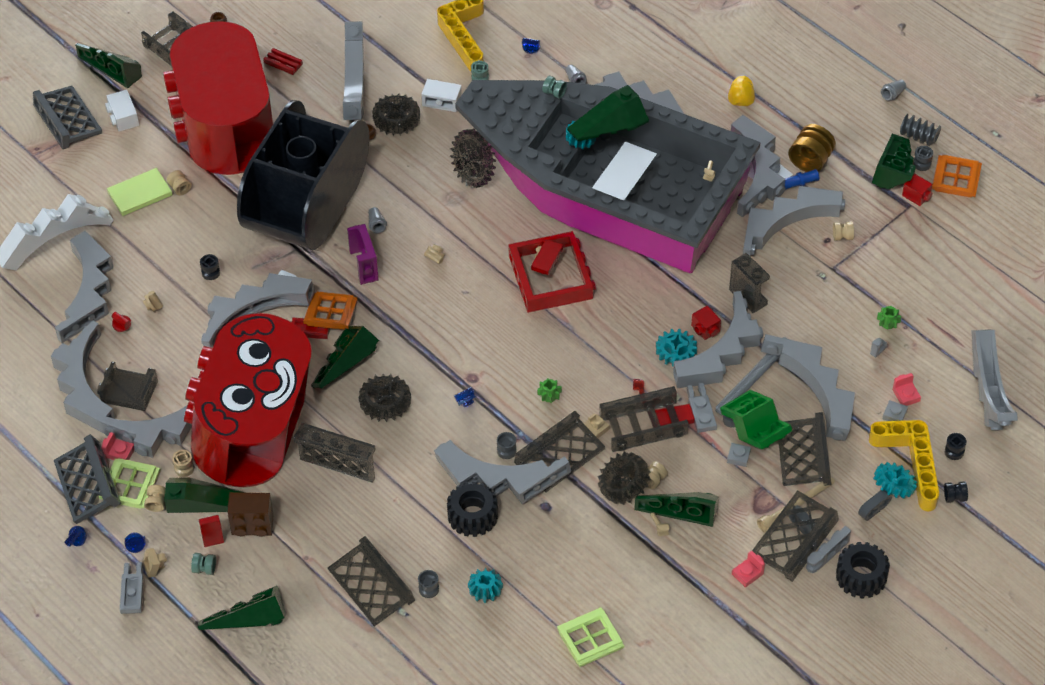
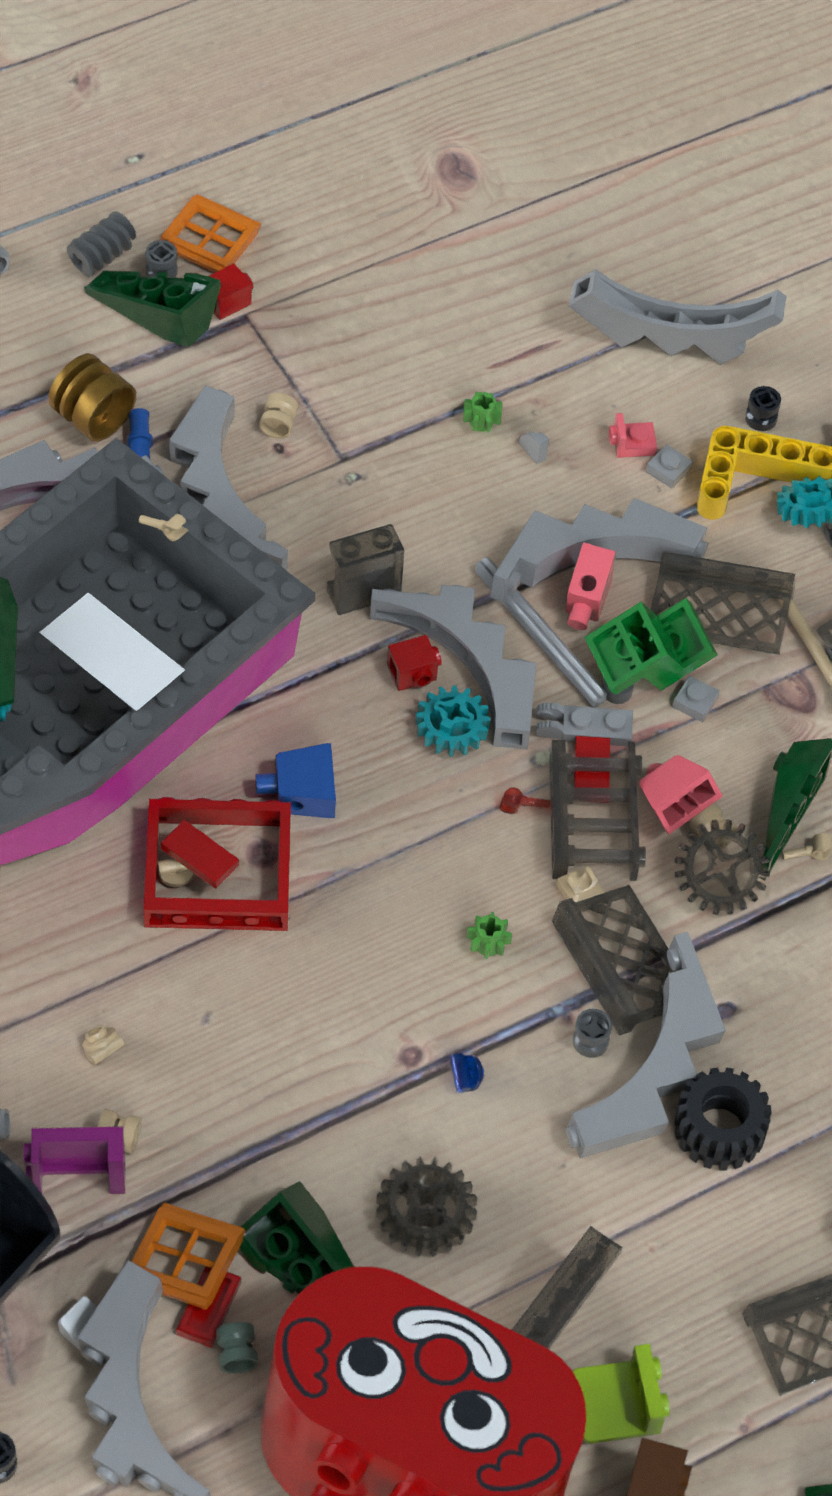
camera: 80 degrees left, 5 degrees up
(303, 497) = (623, 1398): none -> lime bracket
(388, 269) = (131, 1126): none -> tan wheel
(614, 294) = (303, 779): none -> blue torso
(669, 448) = (678, 791): none -> coral torso
(786, 386) = (589, 585): none -> coral torso

